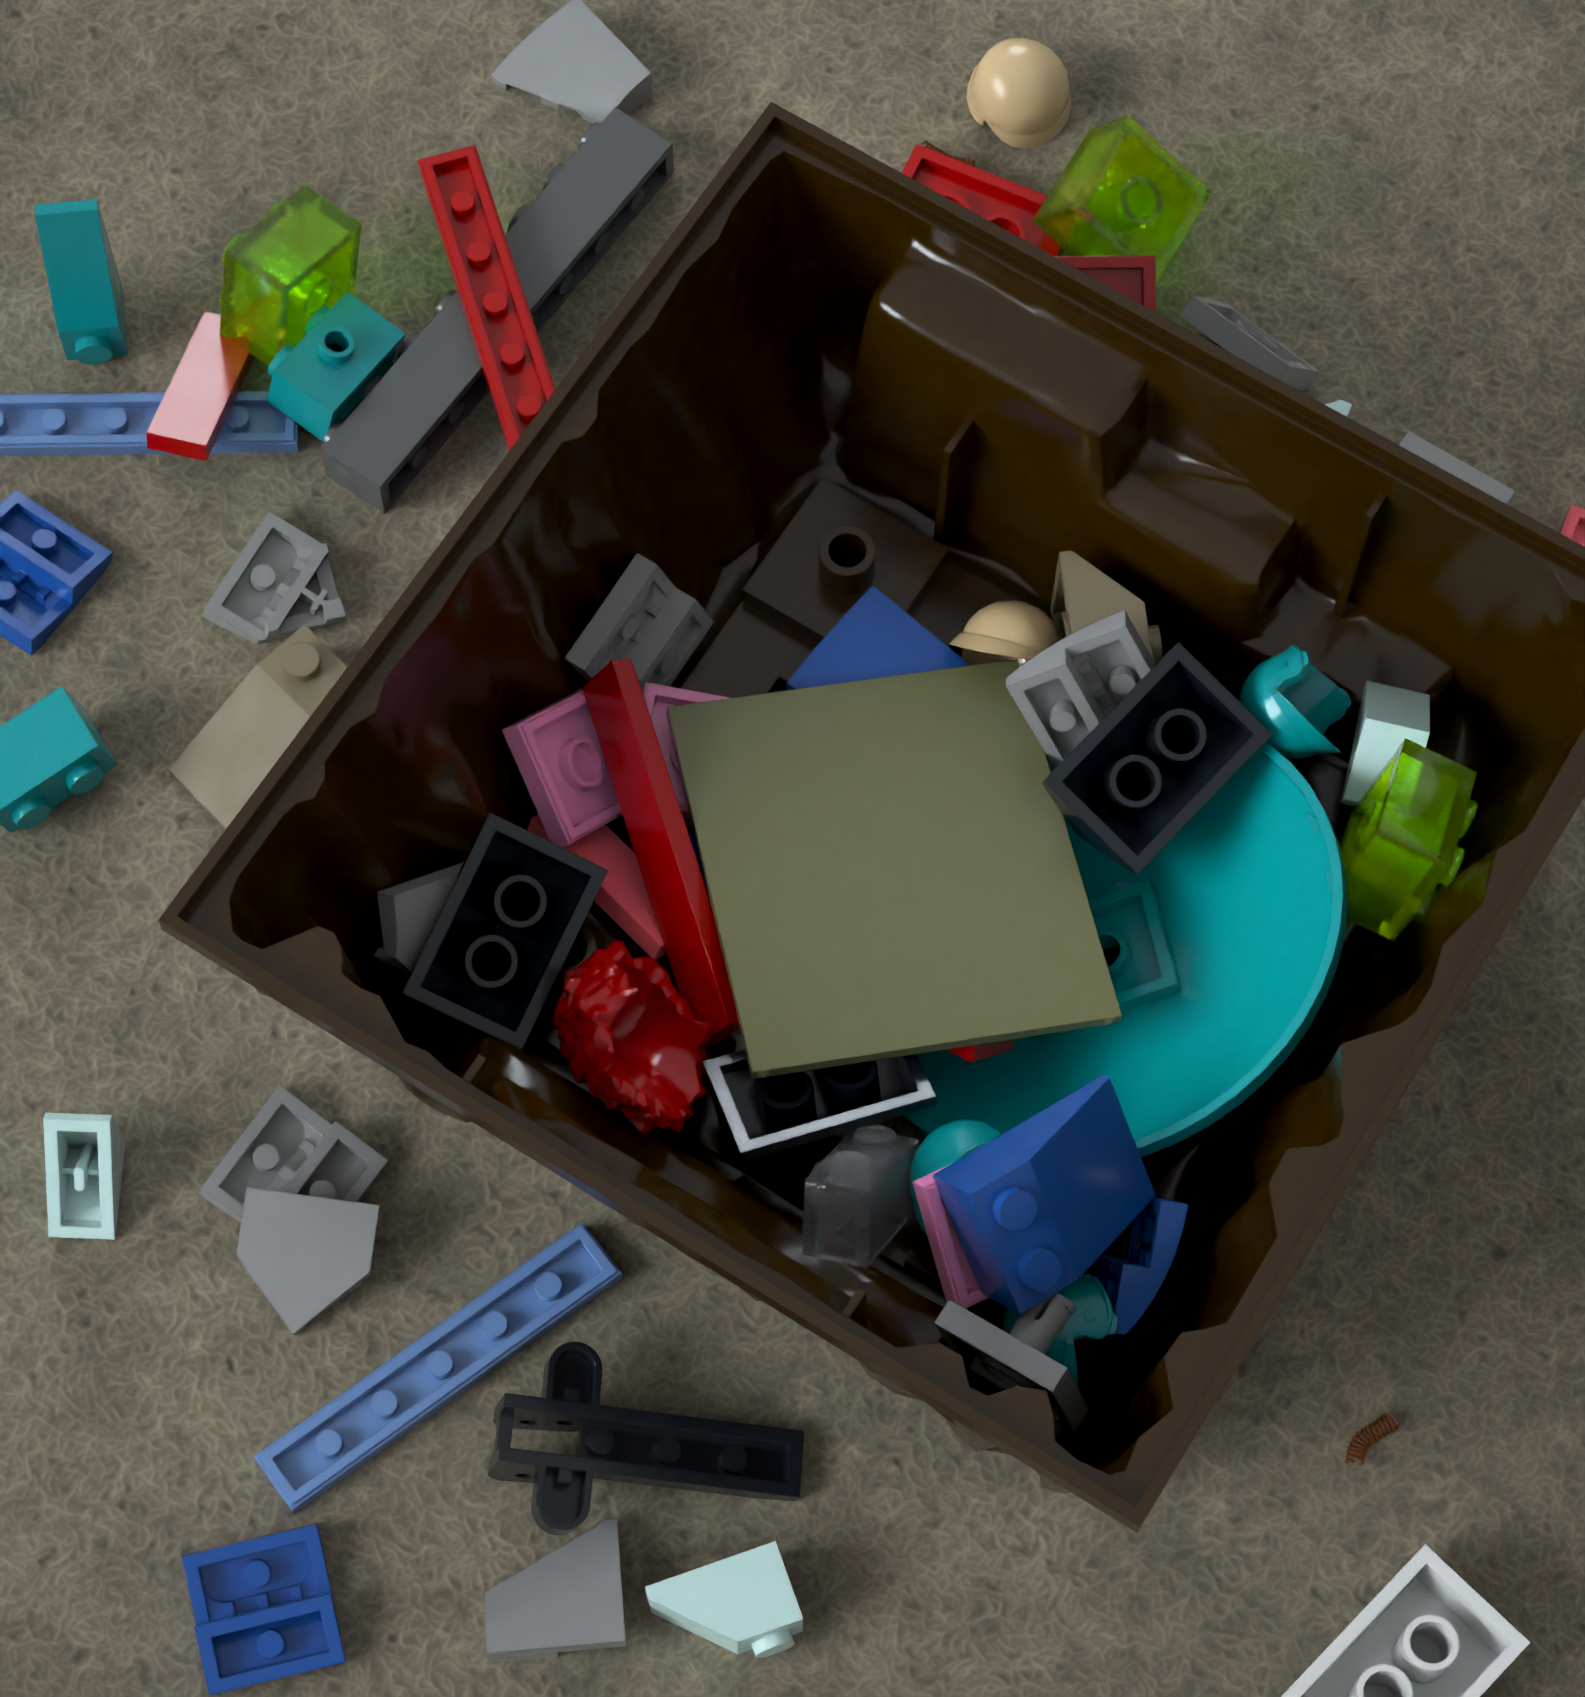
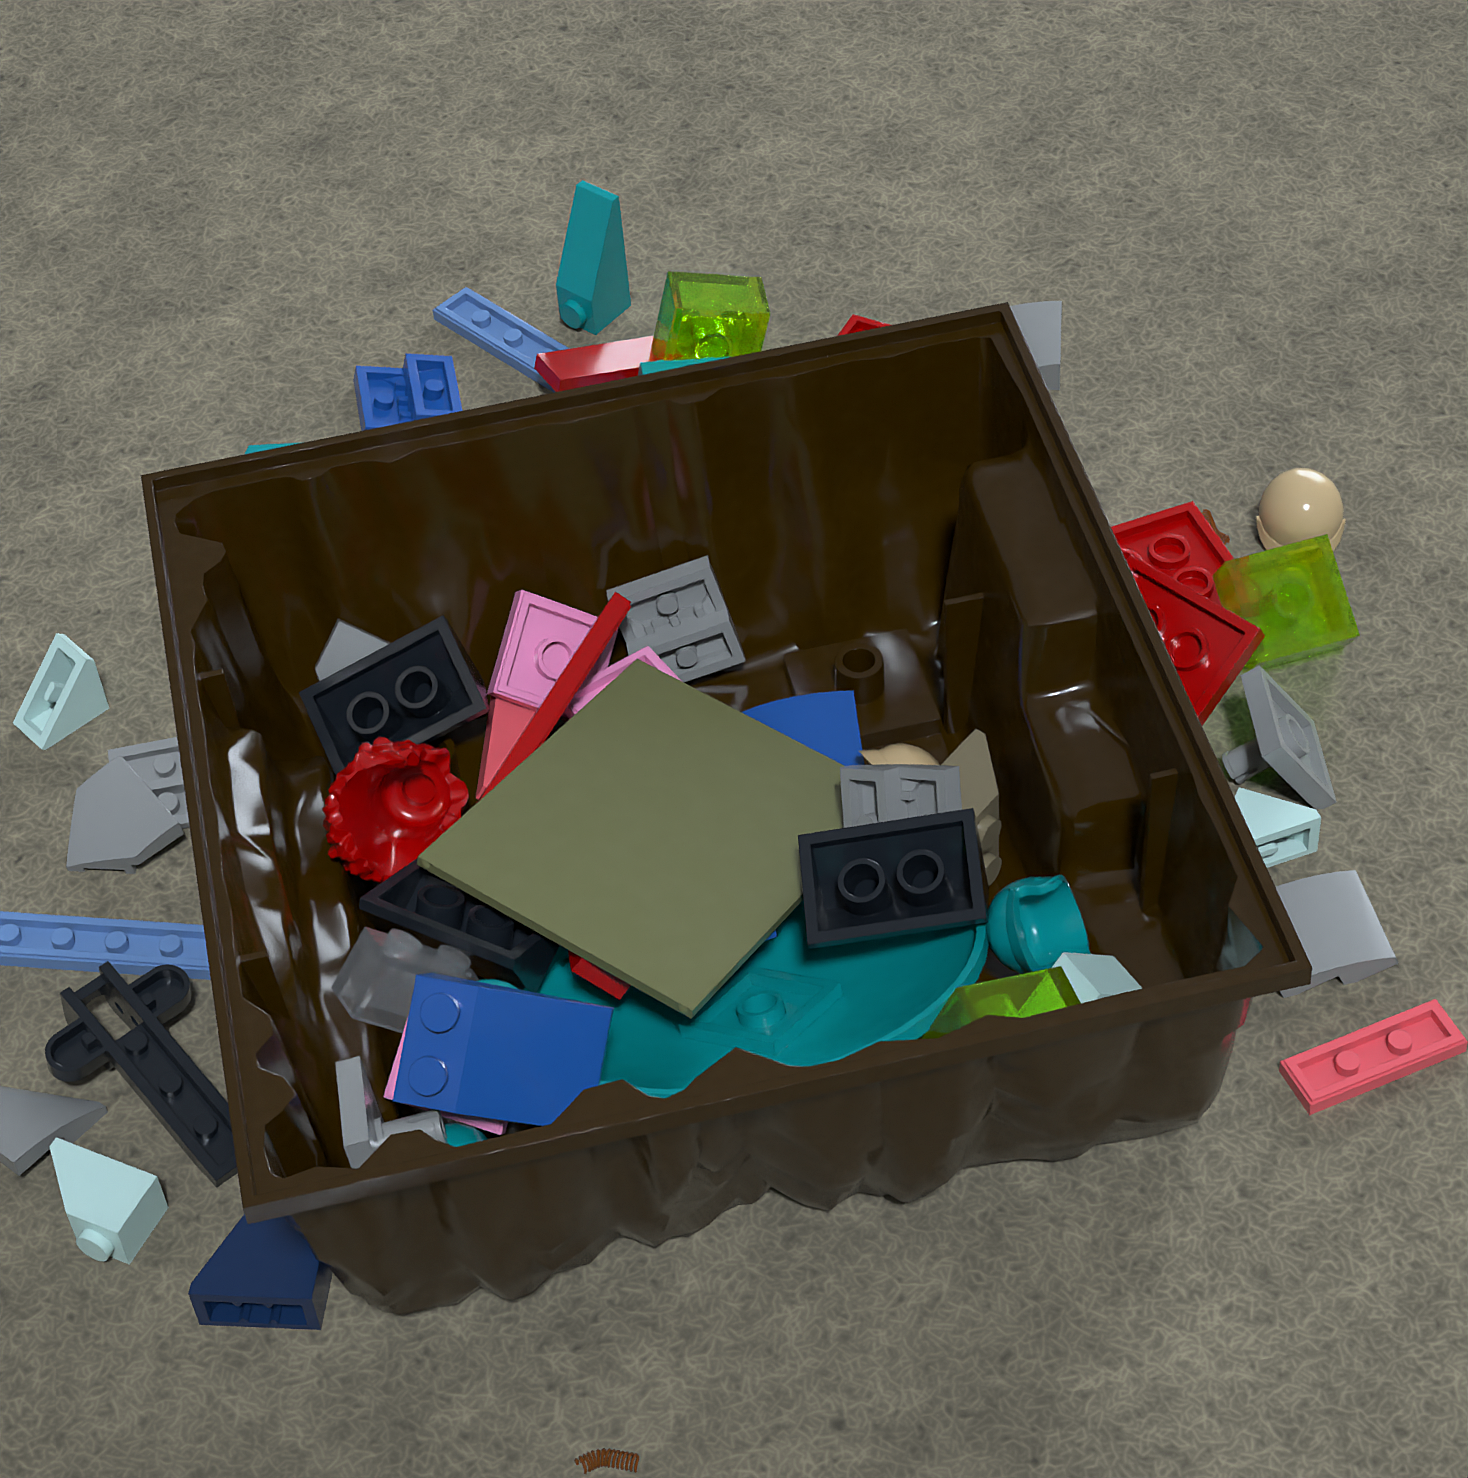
camera: 50 degrees right, 20 degrees down
(940, 1510) = (262, 1279): none -> dark blue slope

